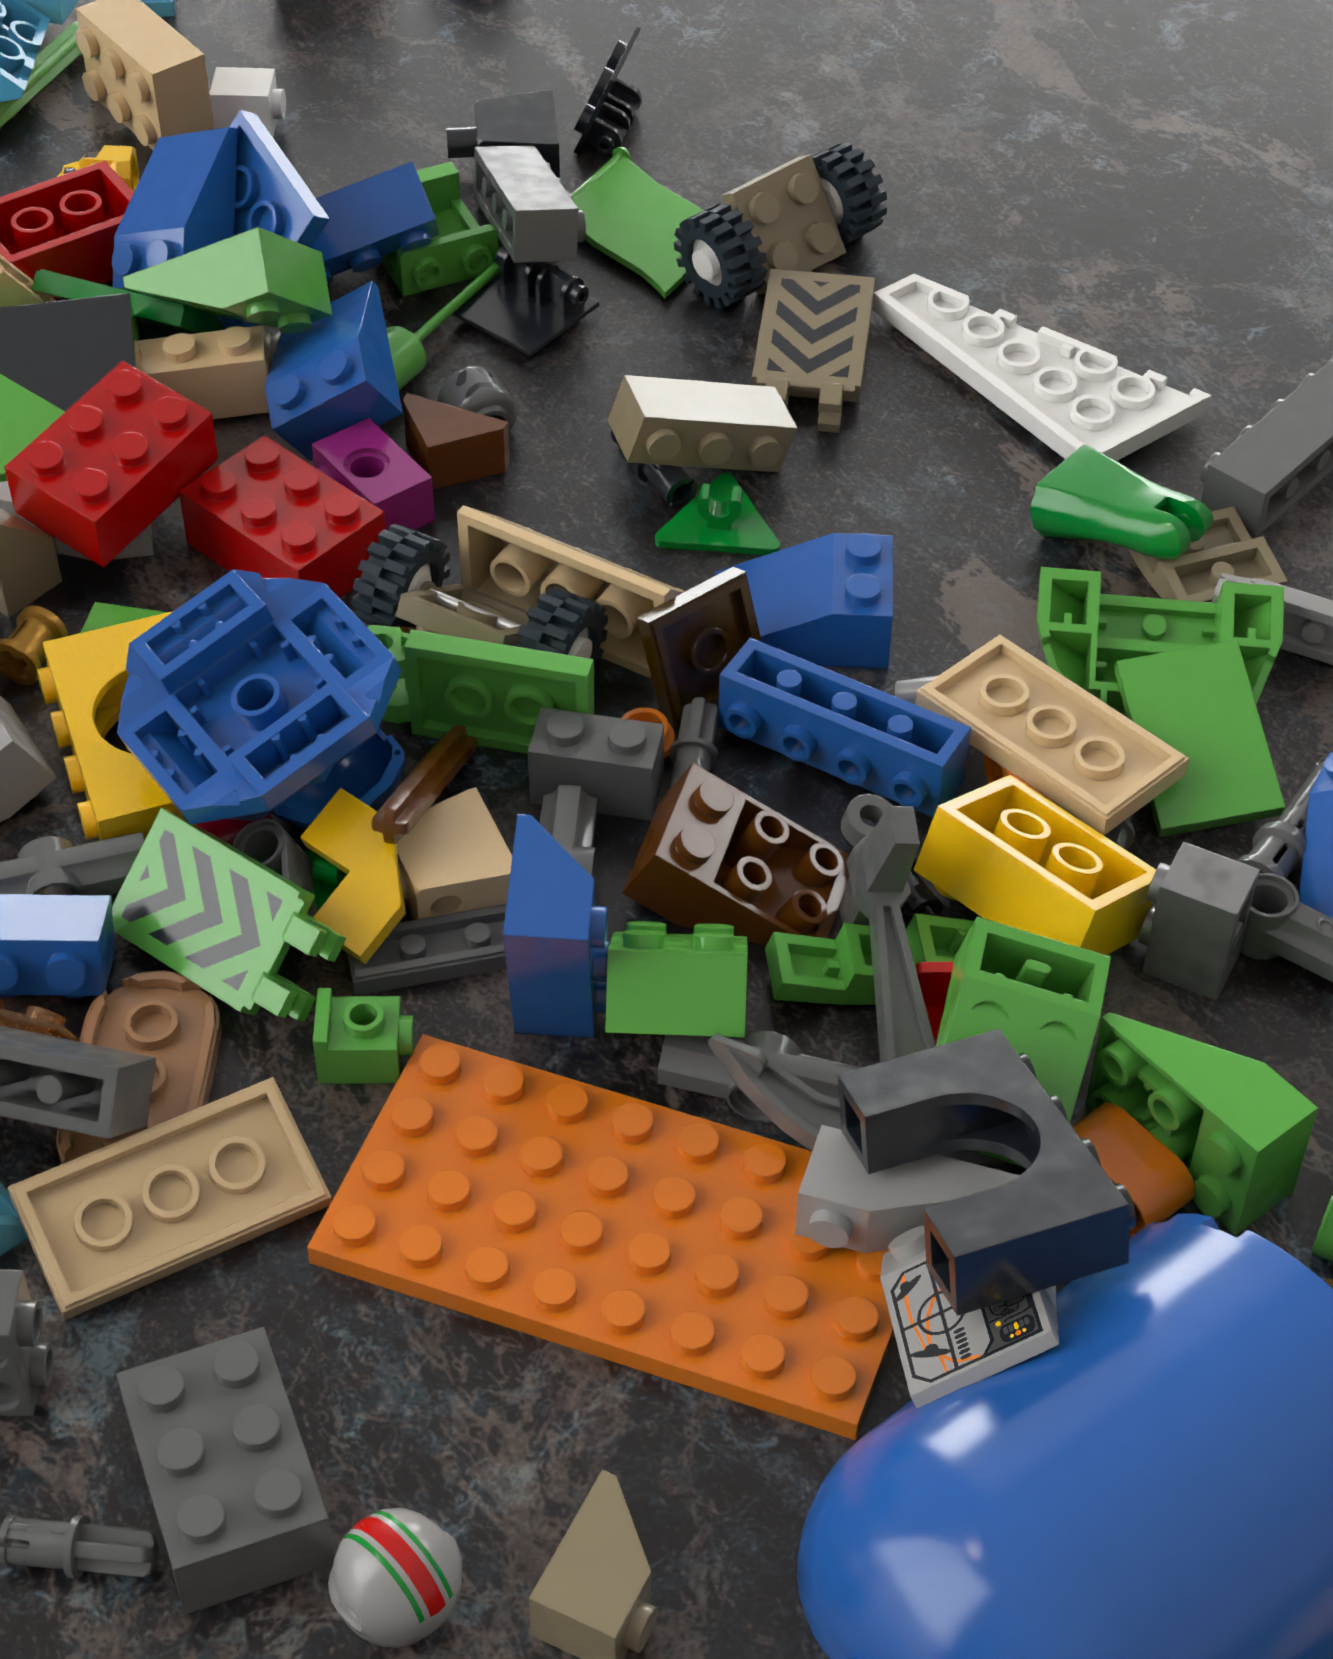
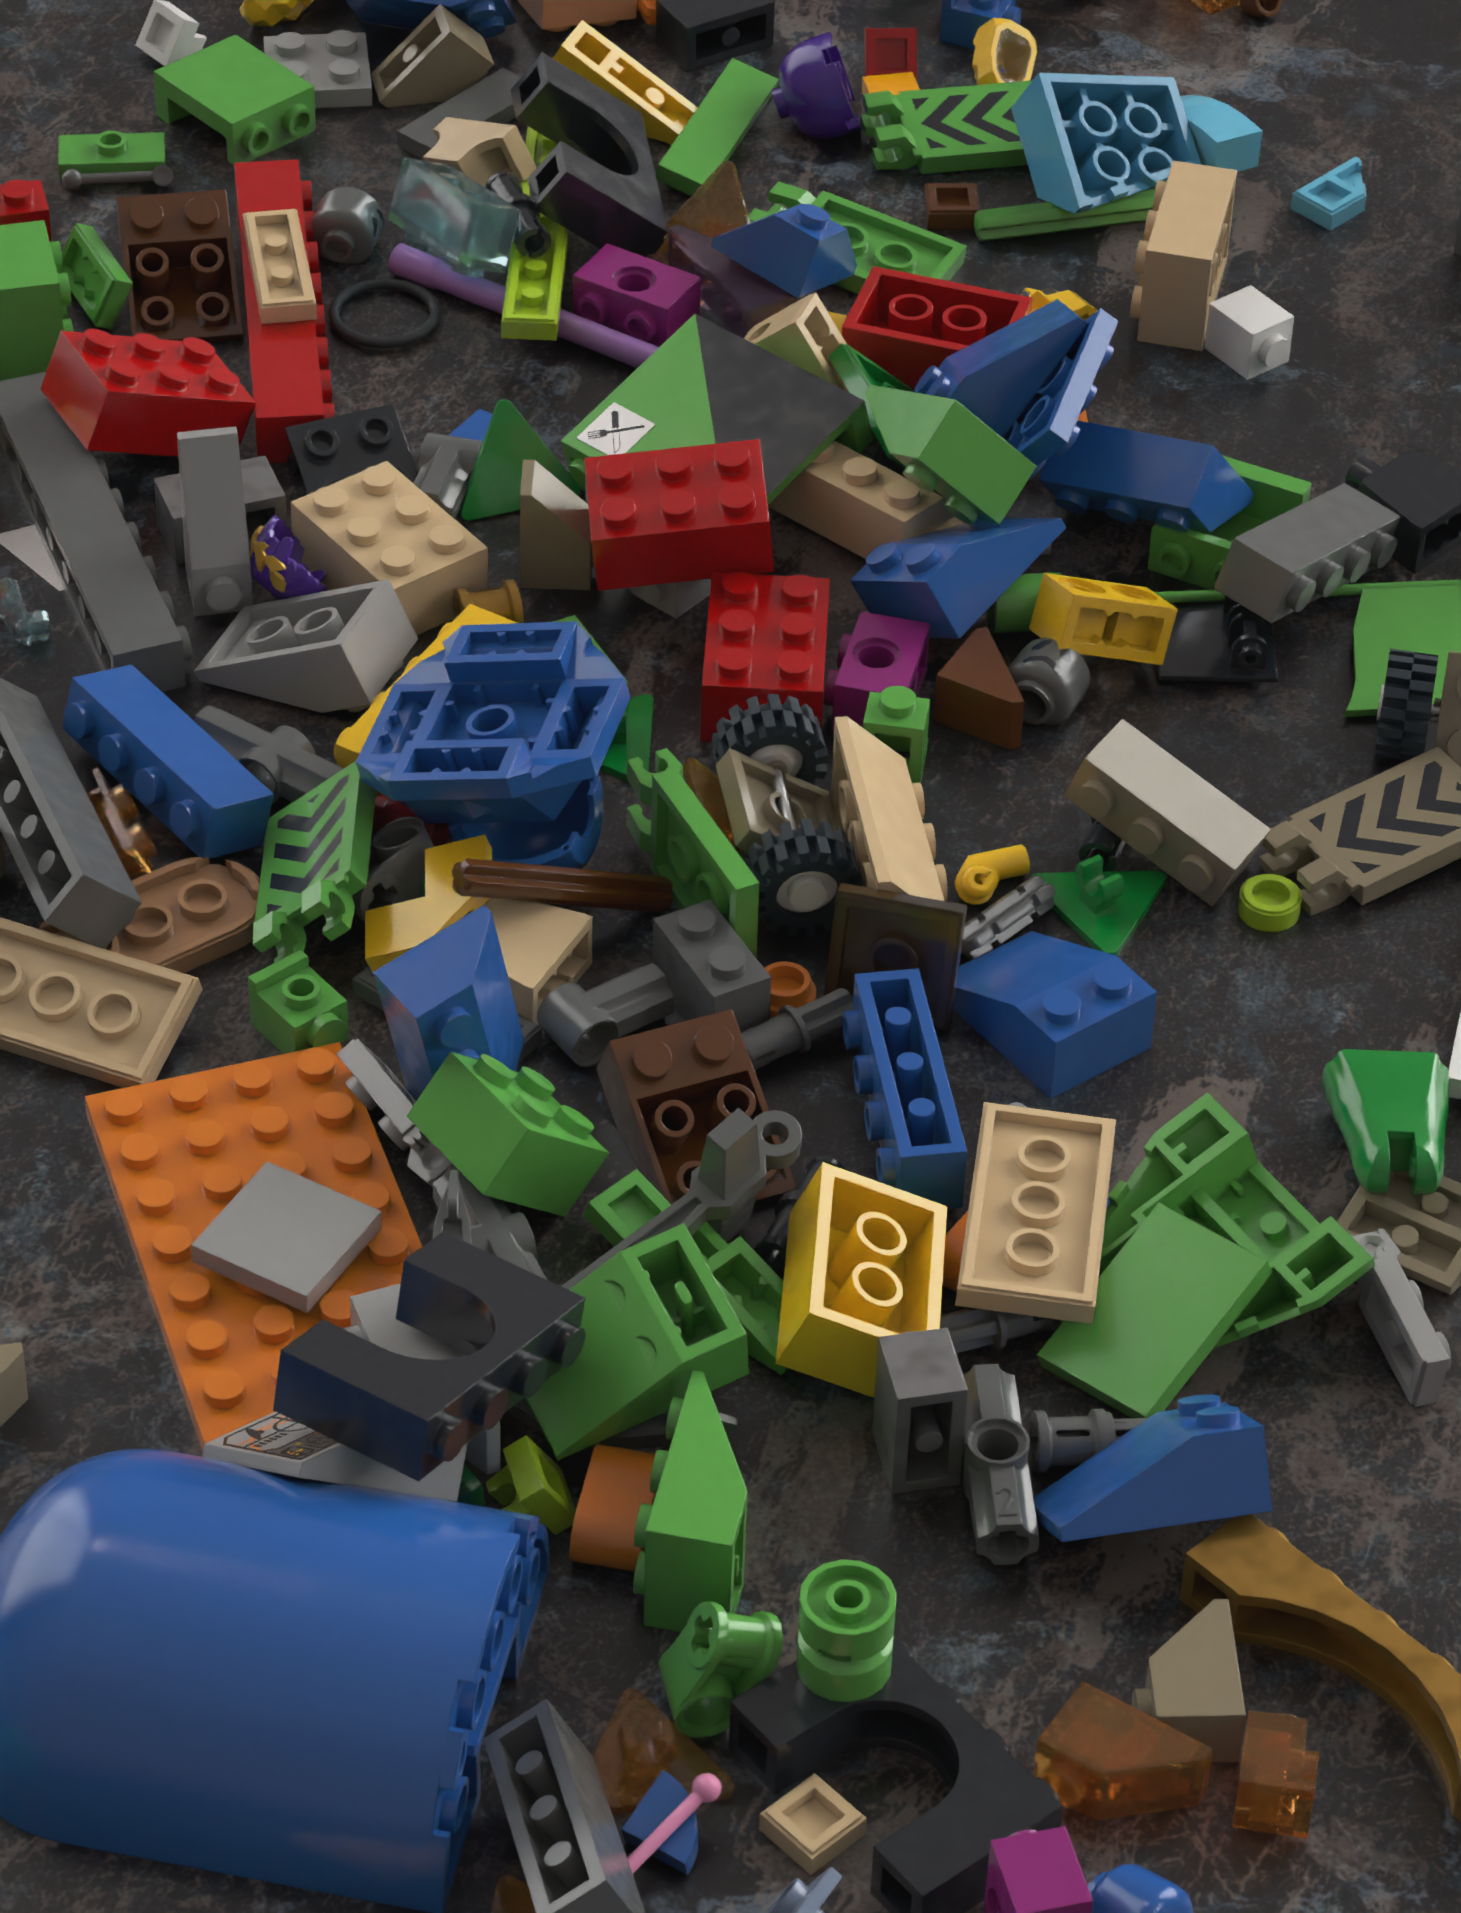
camera: 50 degrees right, 5 degrees down
(441, 499) = (901, 724): none -> bright green brick
(466, 334) = (1103, 618): none -> yellow brick
(560, 1044) = (377, 1085): none -> light grey hinge
(631, 552) = (984, 870): none -> yellow arm
(640, 1202) = (286, 1236): none -> light grey tile
(688, 560) = (1007, 917): none -> dark grey axle
(815, 442) = (1269, 903): none -> lime tile

